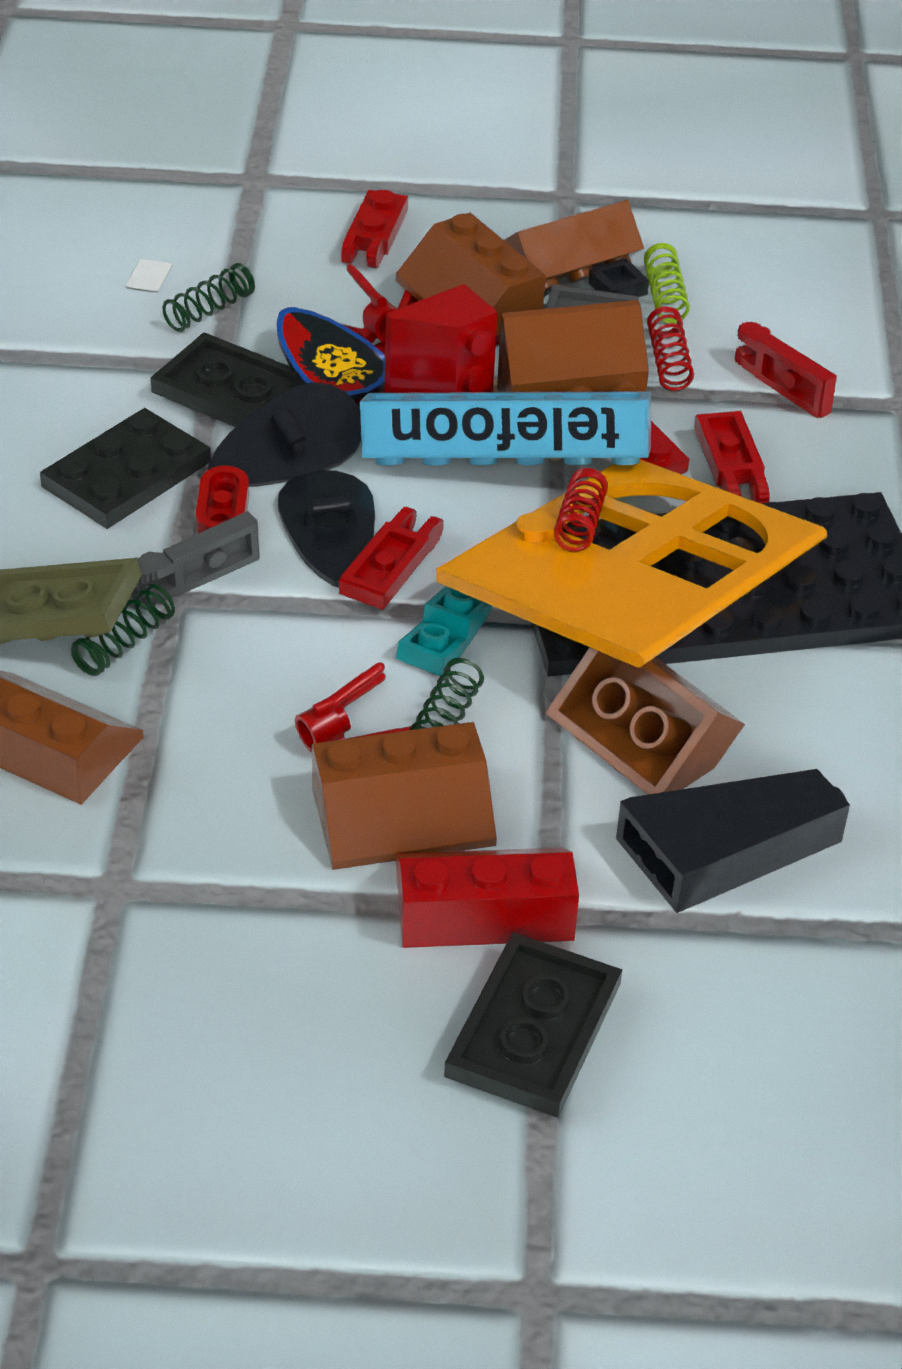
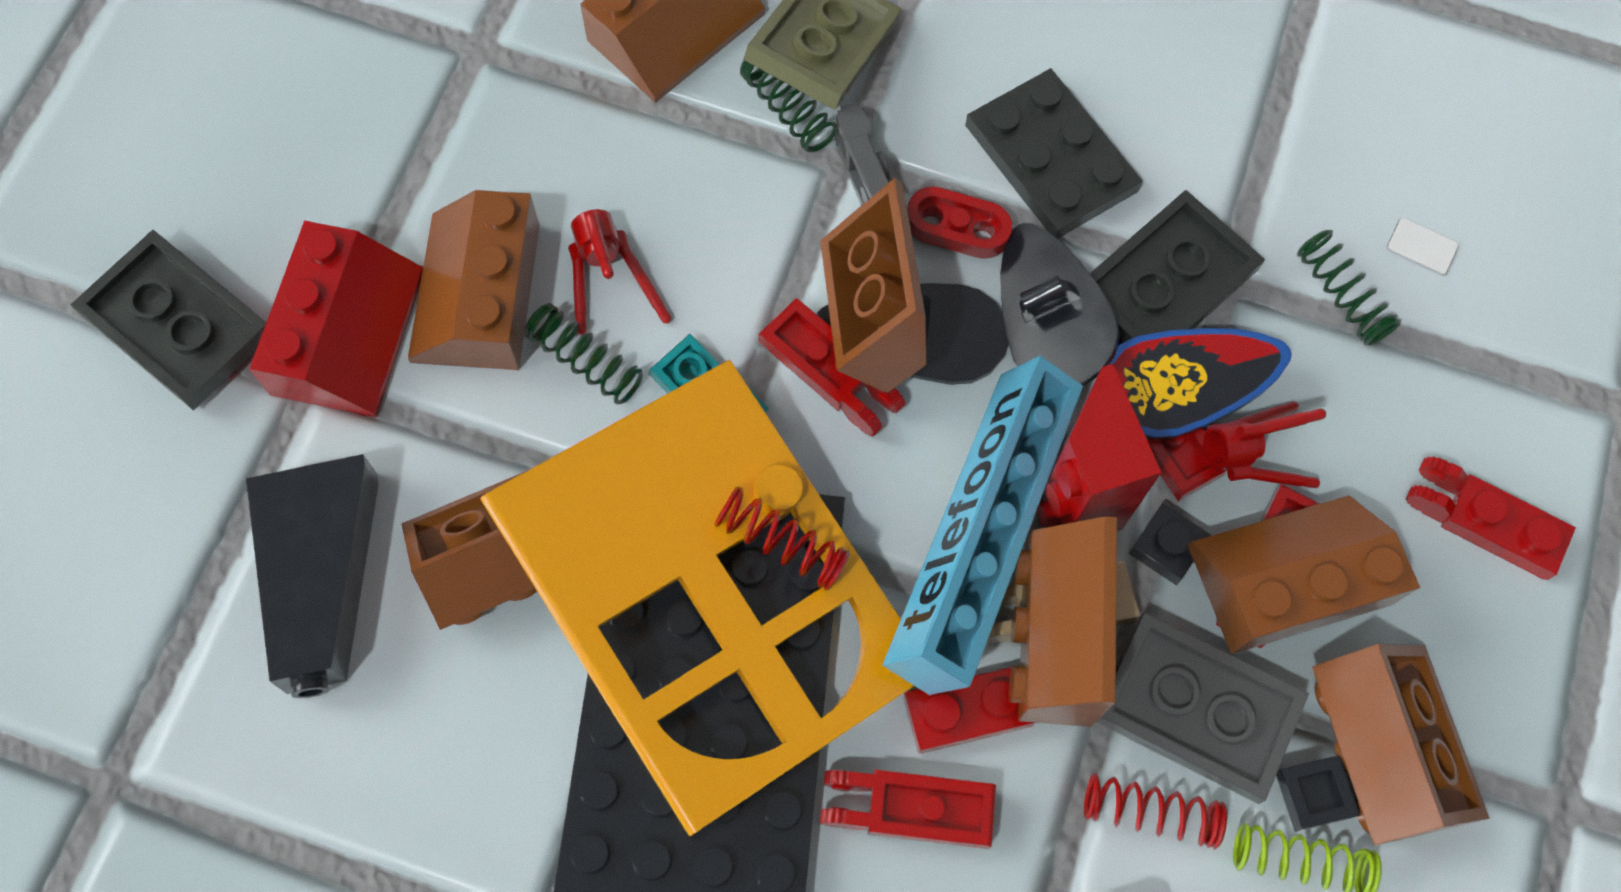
camera: 105 degrees right, 25 degrees up
(328, 491) = (875, 292): none -> dark orange slope

